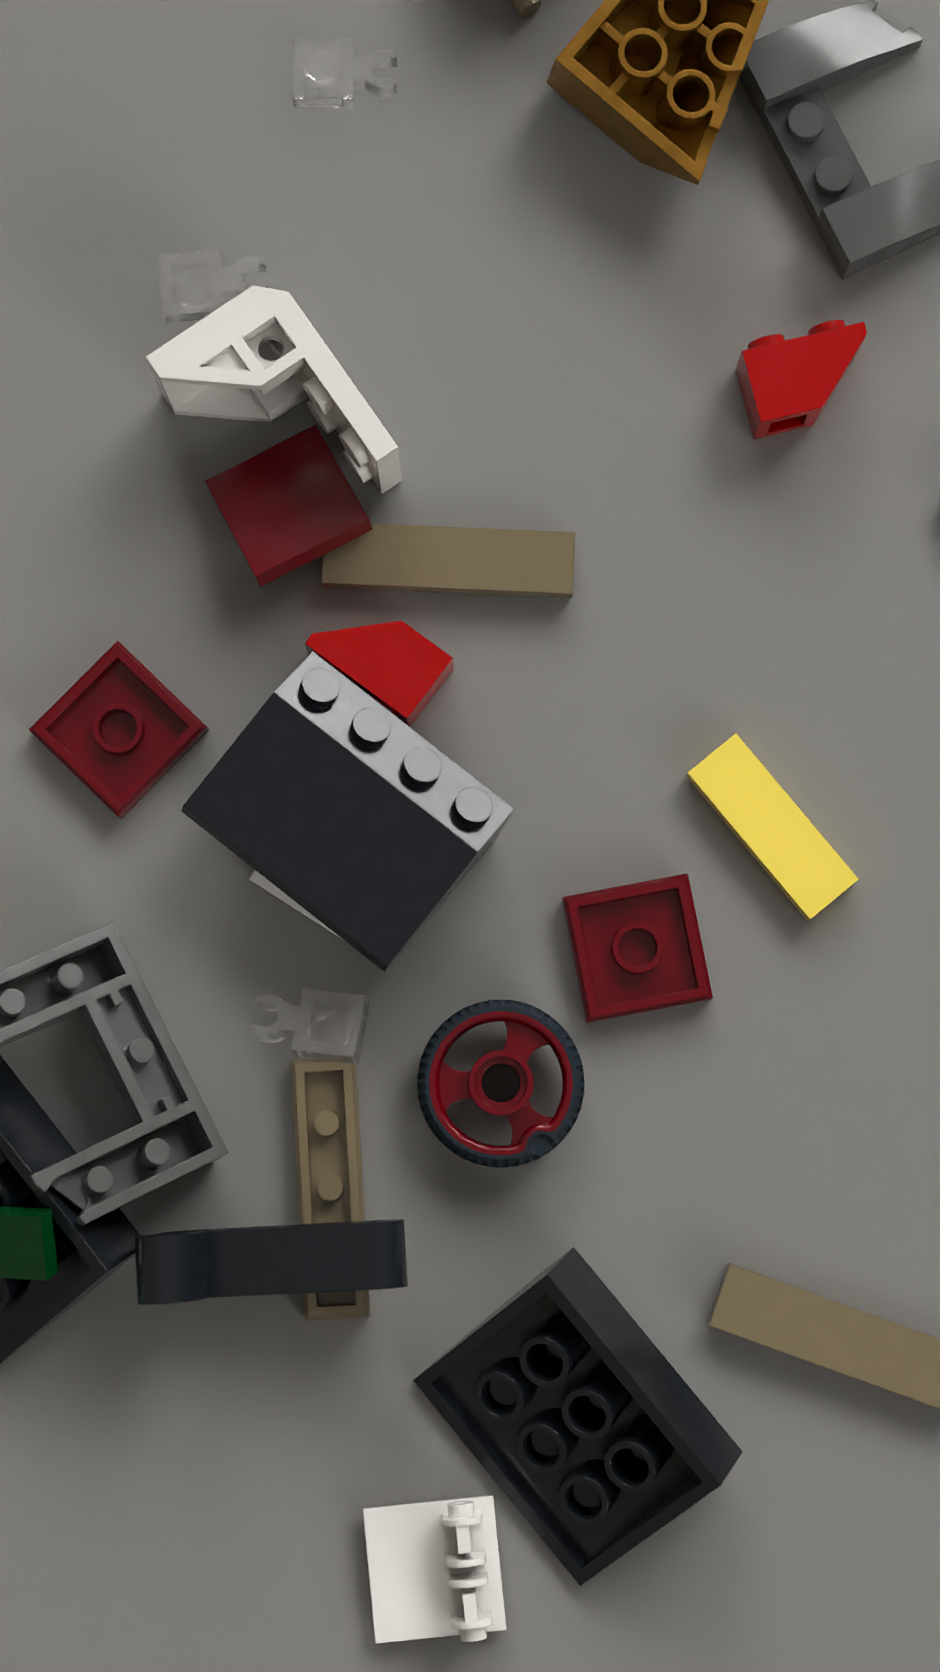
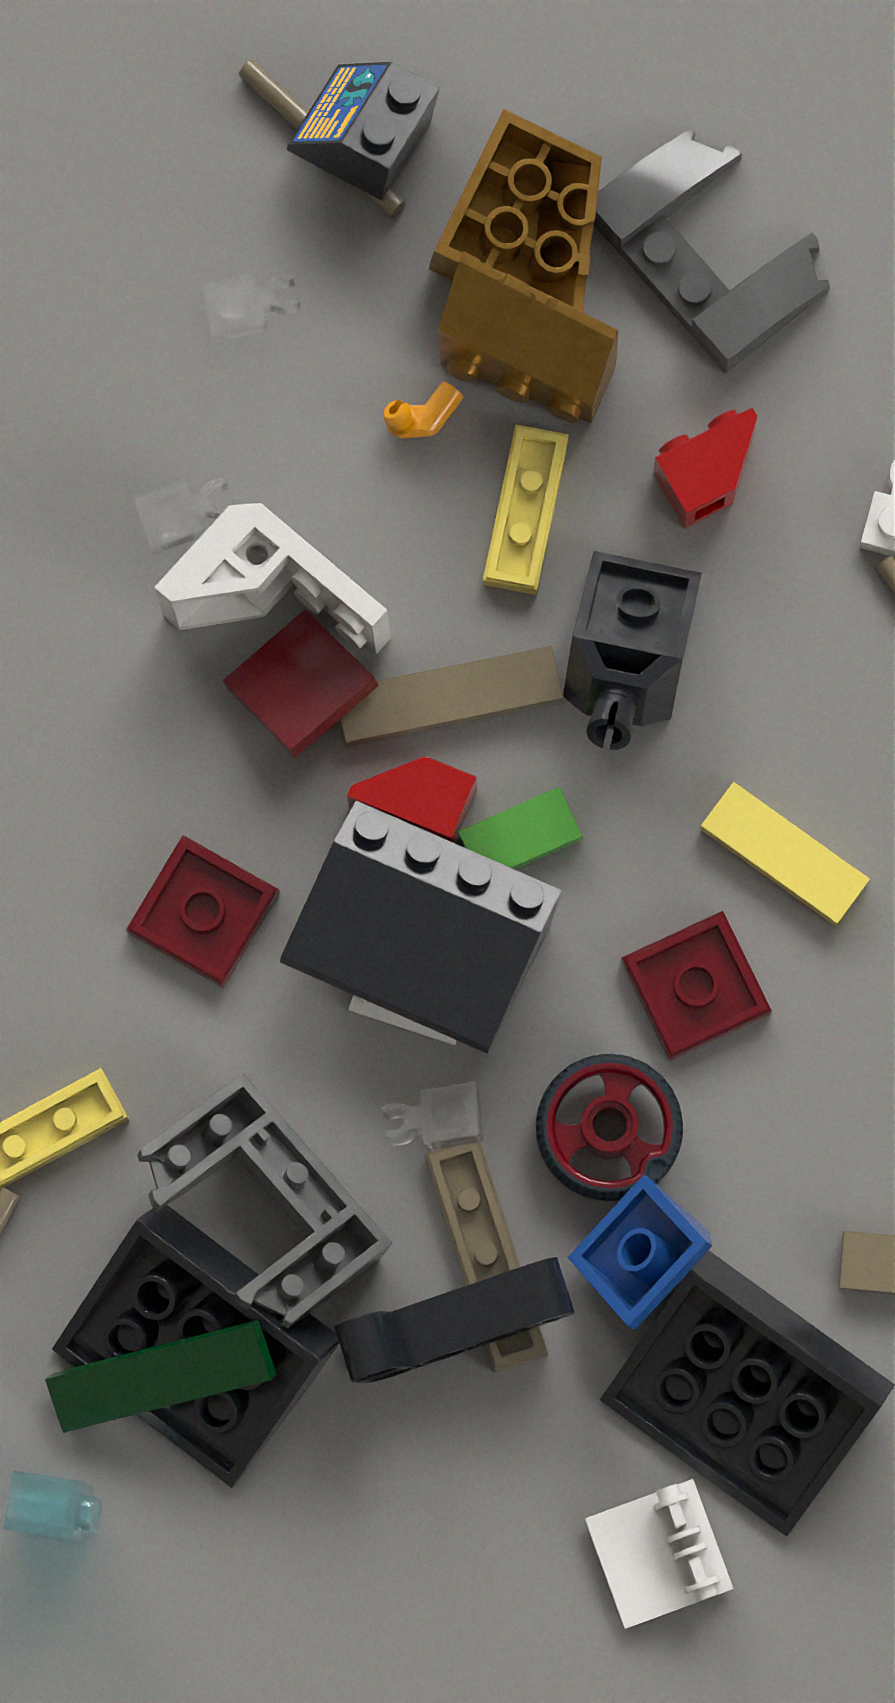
camera: 10 degrees left, 5 degrees down
(491, 731) = (524, 831): none -> bright green tile
(495, 247) = (422, 420): none -> light orange arm
(500, 1235) = (641, 1251): none -> blue slope
(585, 375) = (525, 509): none -> light yellow tile
(628, 188) = (525, 346): none -> pearl gold wedge
(659, 552) = (629, 644): none -> black plate

